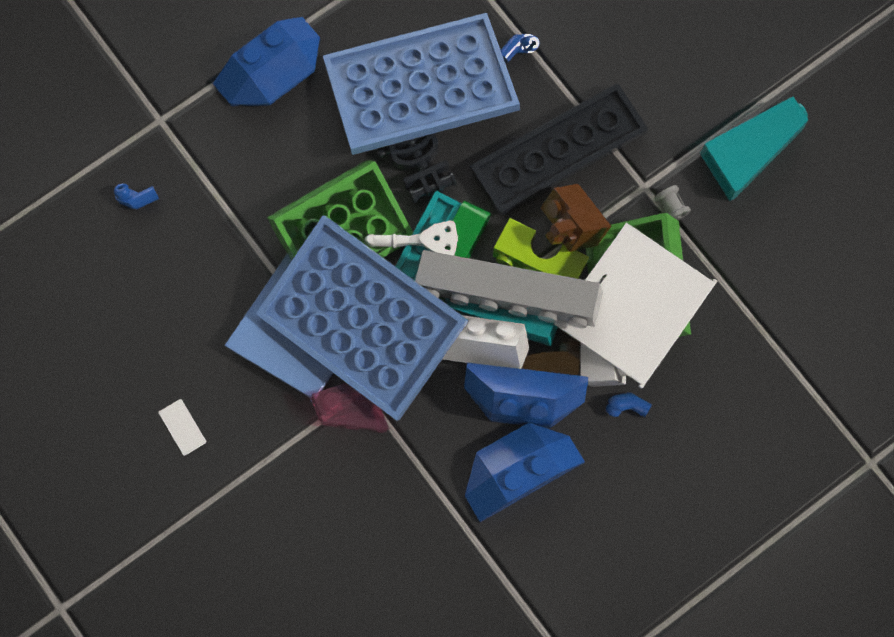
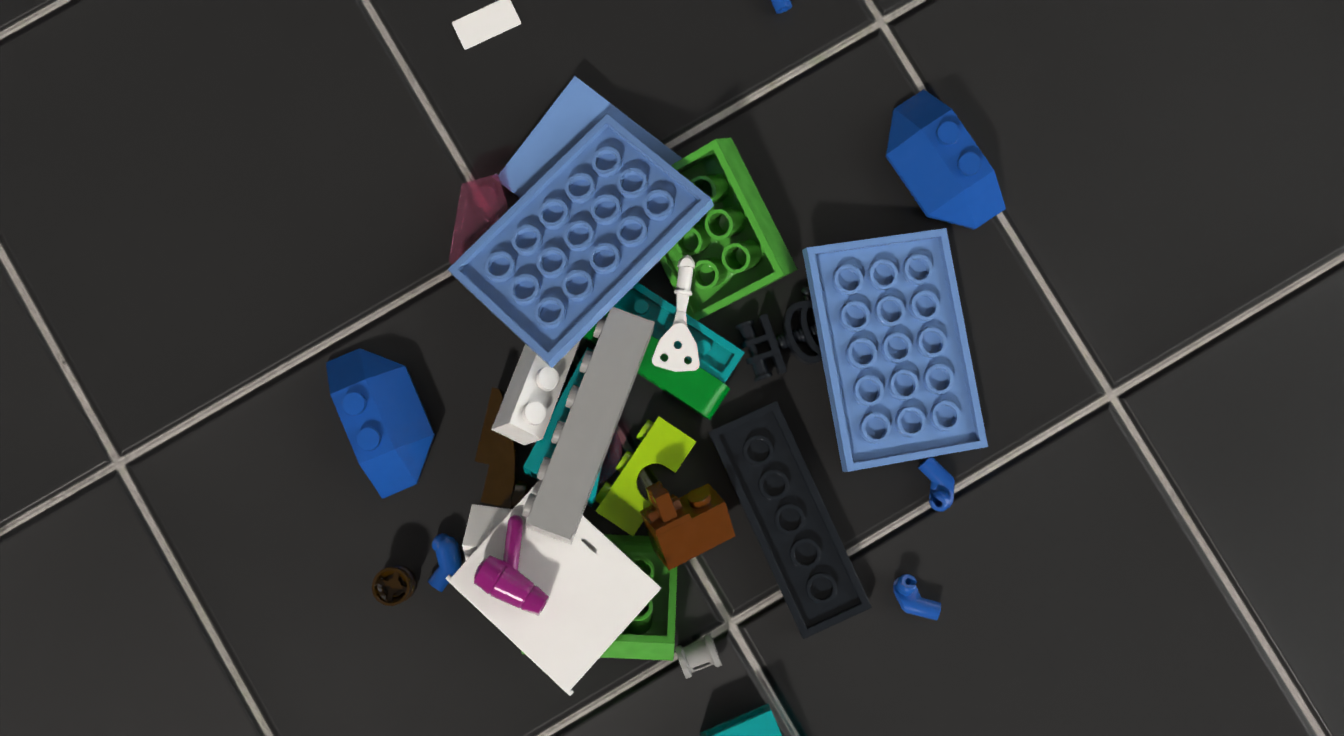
camera: 95 degrees right, 10 degrees up
(524, 394) = (462, 432): blue wedge -> none
(608, 58) = (911, 600): none -> blue arm
(635, 339) = (504, 580): none -> magenta piece
(655, 435) = (388, 588): none -> dark brown wheel

